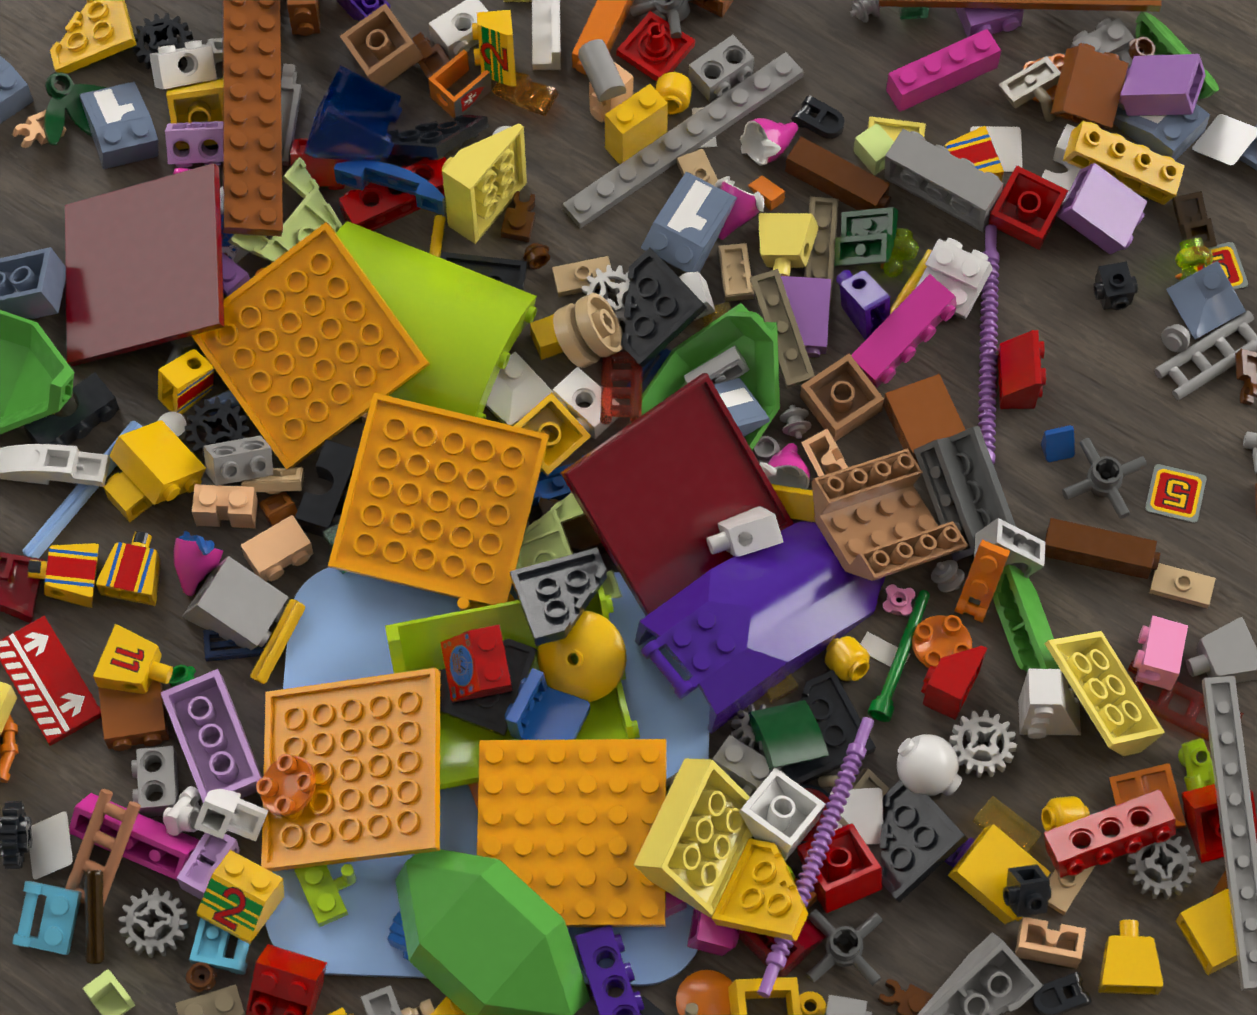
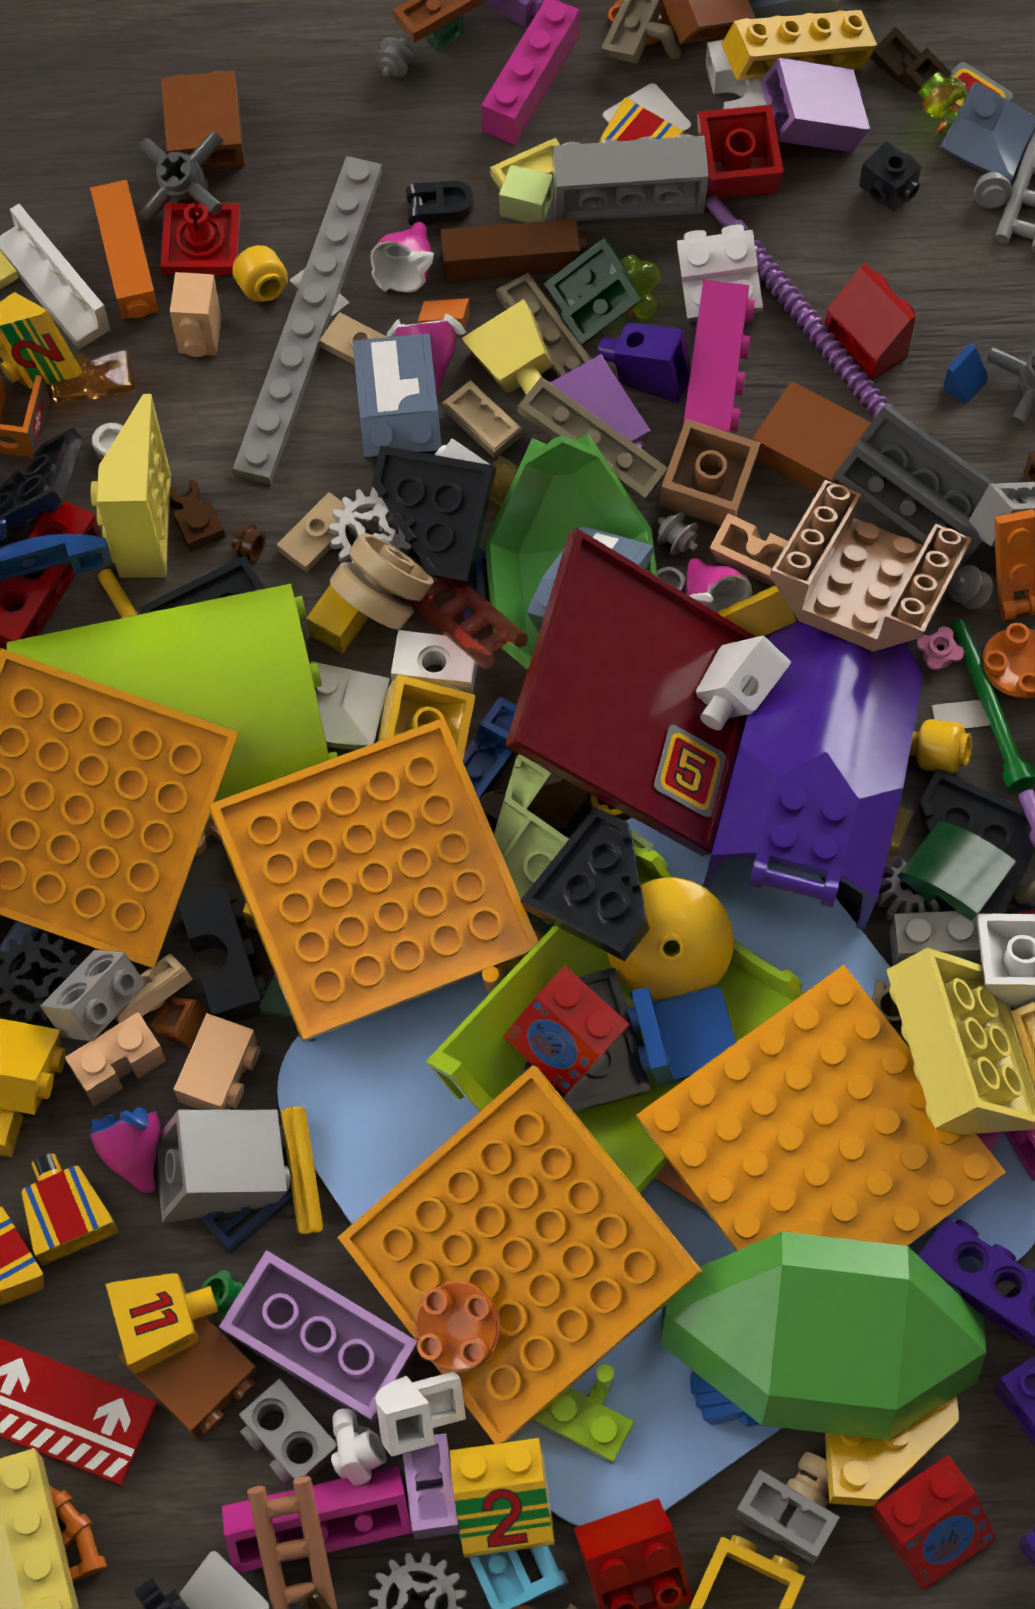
camera: 35 degrees left, 0 degrees up
(601, 70) = (175, 289): light grey brick -> none
(635, 123) = (252, 328): yellow brick -> none
(676, 565) = (690, 771): none -> sticker
(717, 64) = (286, 214): light grey brick -> none
(721, 368) = (552, 533): light grey brick -> none
(912, 281) = (675, 301): yellow bar -> none

